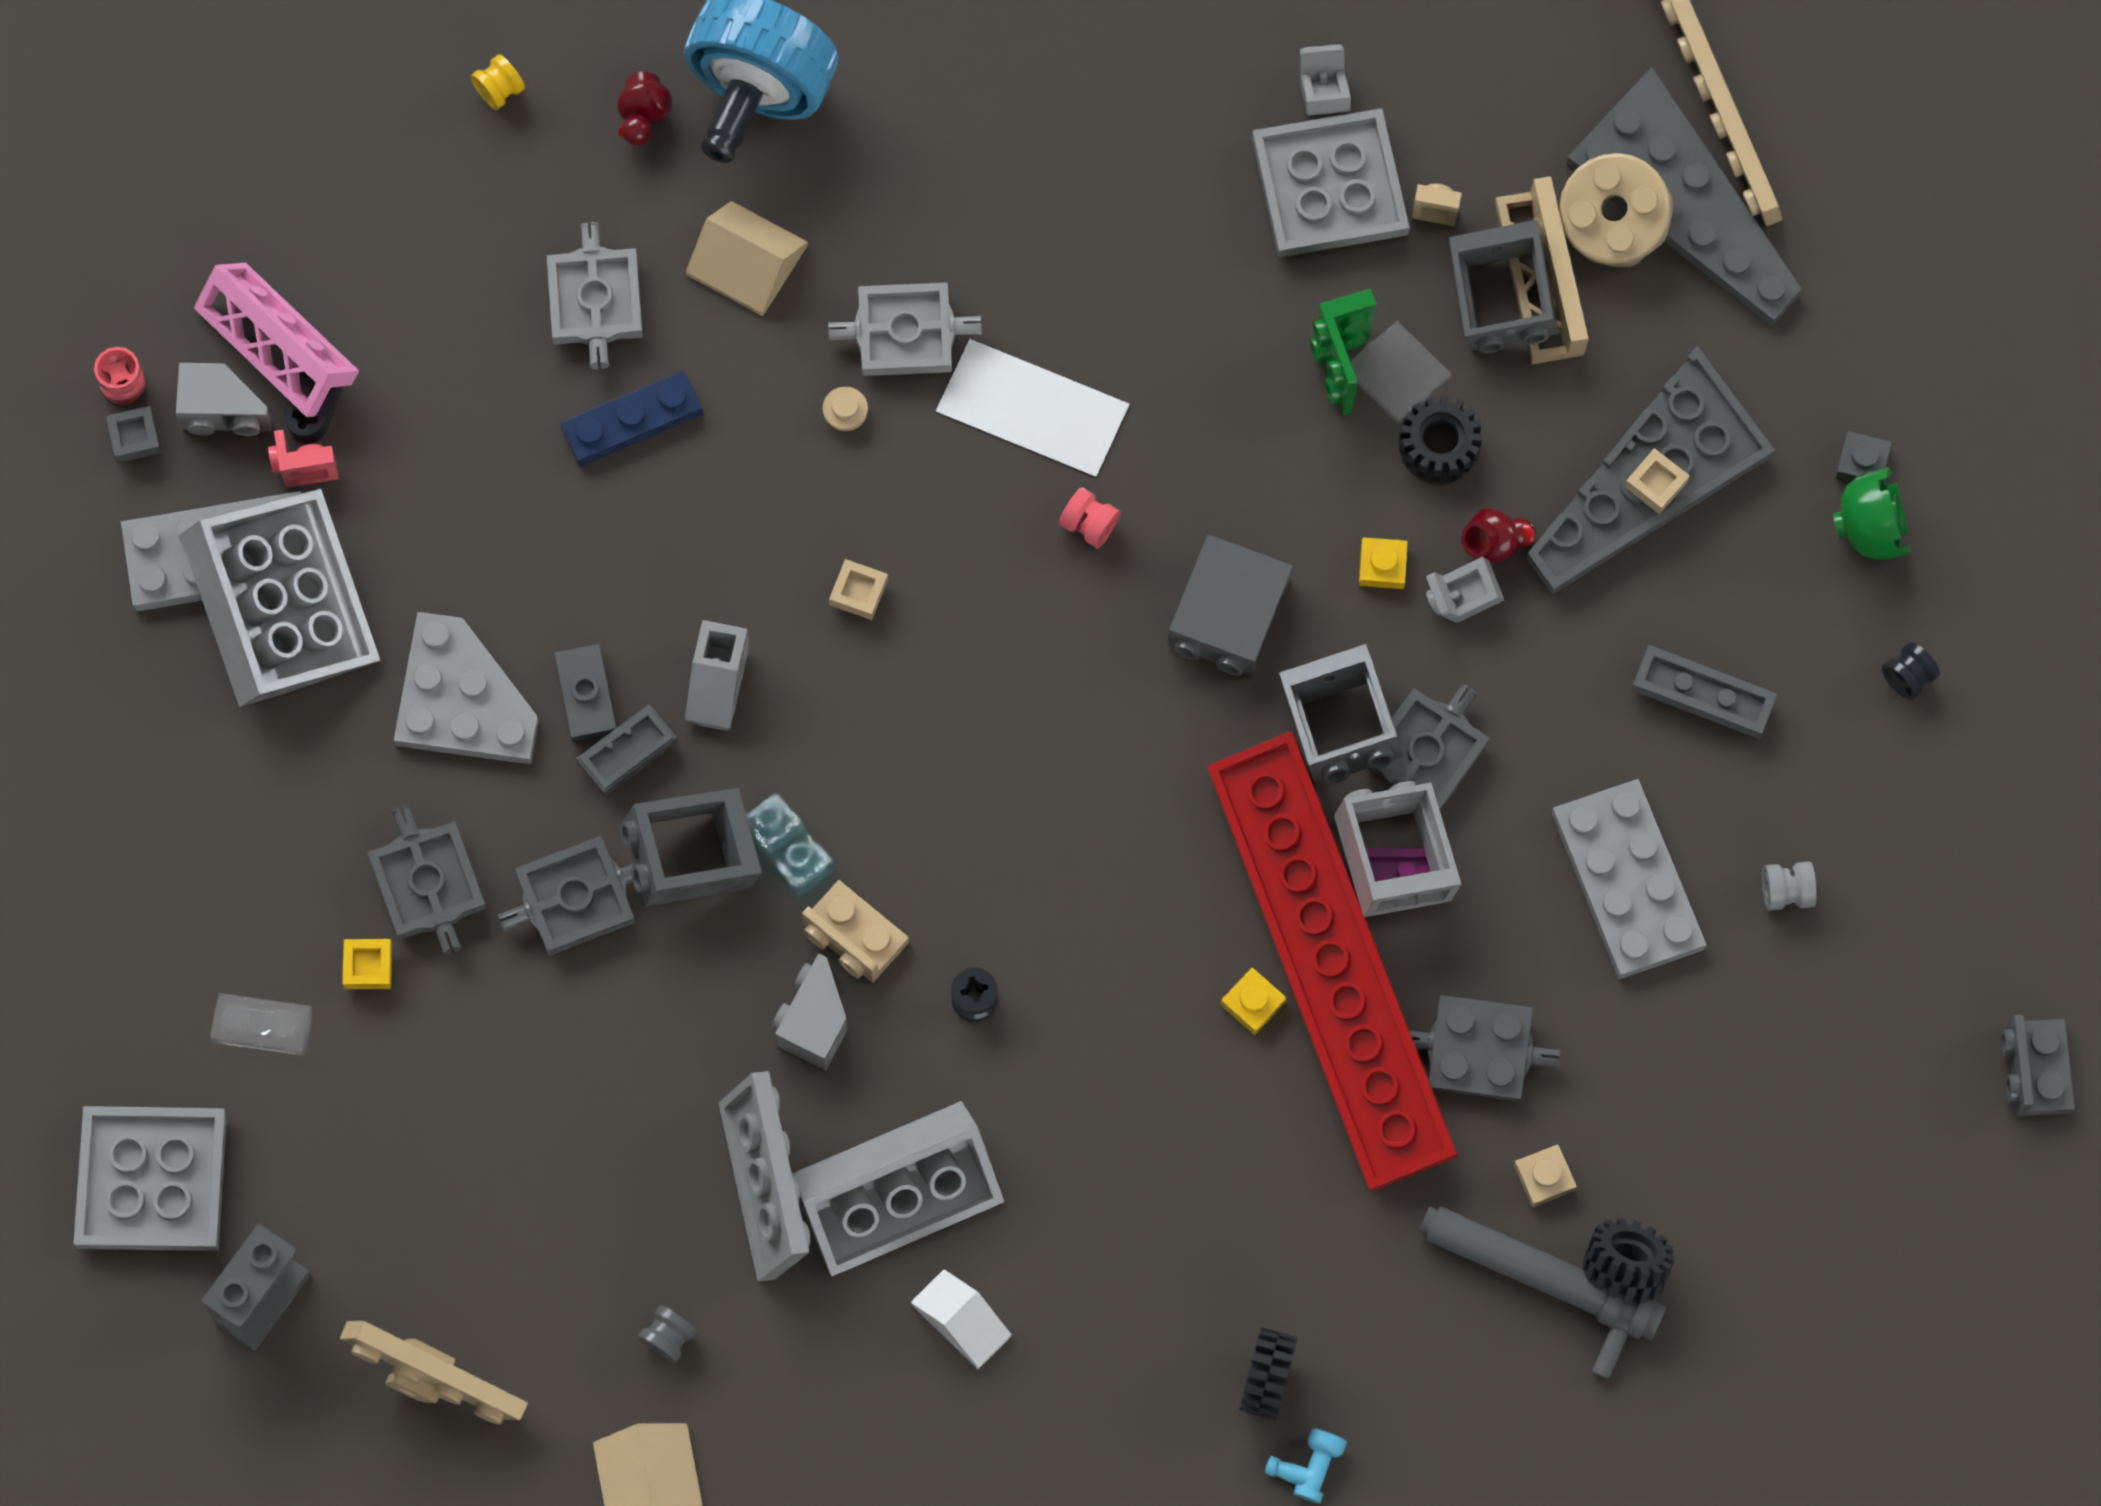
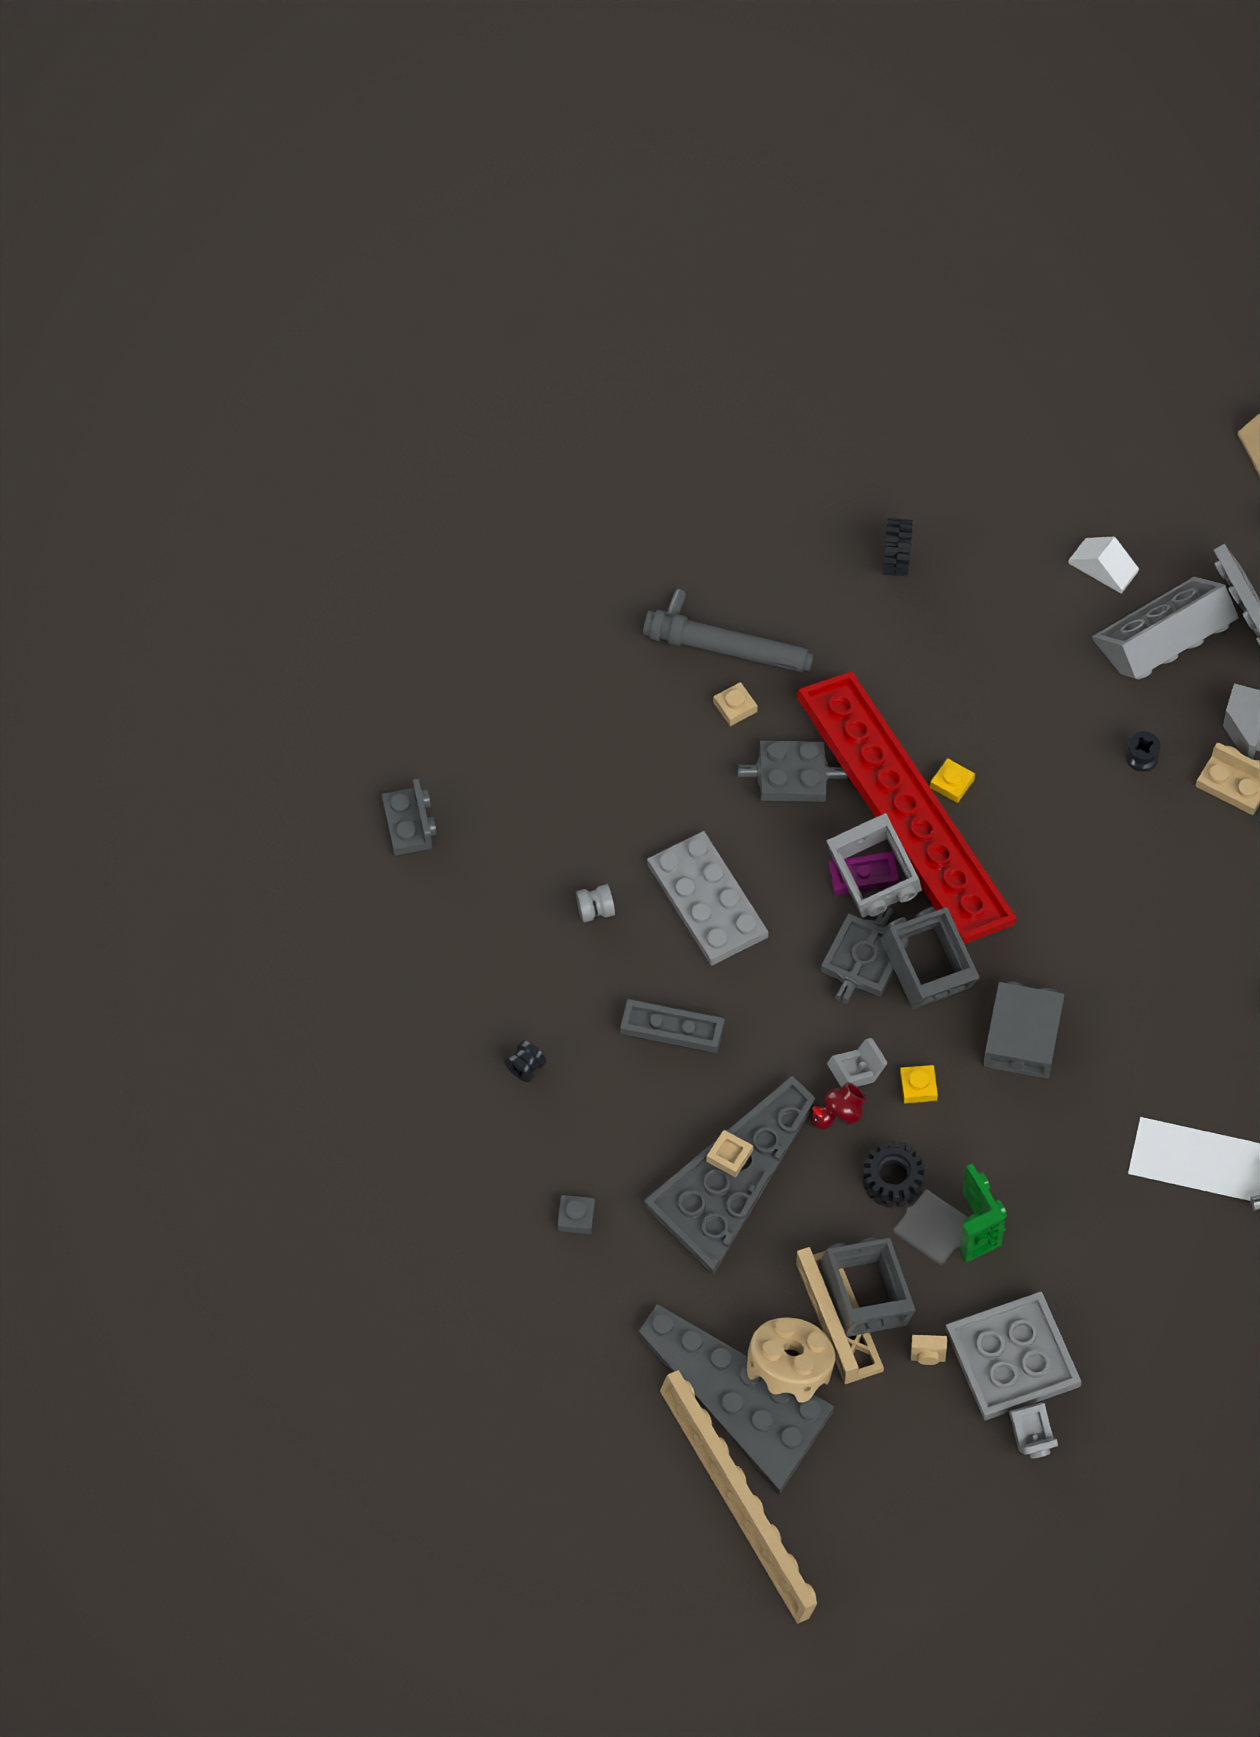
camera: 175 degrees right, 10 degrees down
(1089, 517) = (1138, 1075): coral wheel -> none
(1309, 1479) = (852, 524): medium azure piece -> none
(1628, 1260) = (686, 633): black tyre -> none
(1873, 517) = (564, 1160): green cylinder -> none

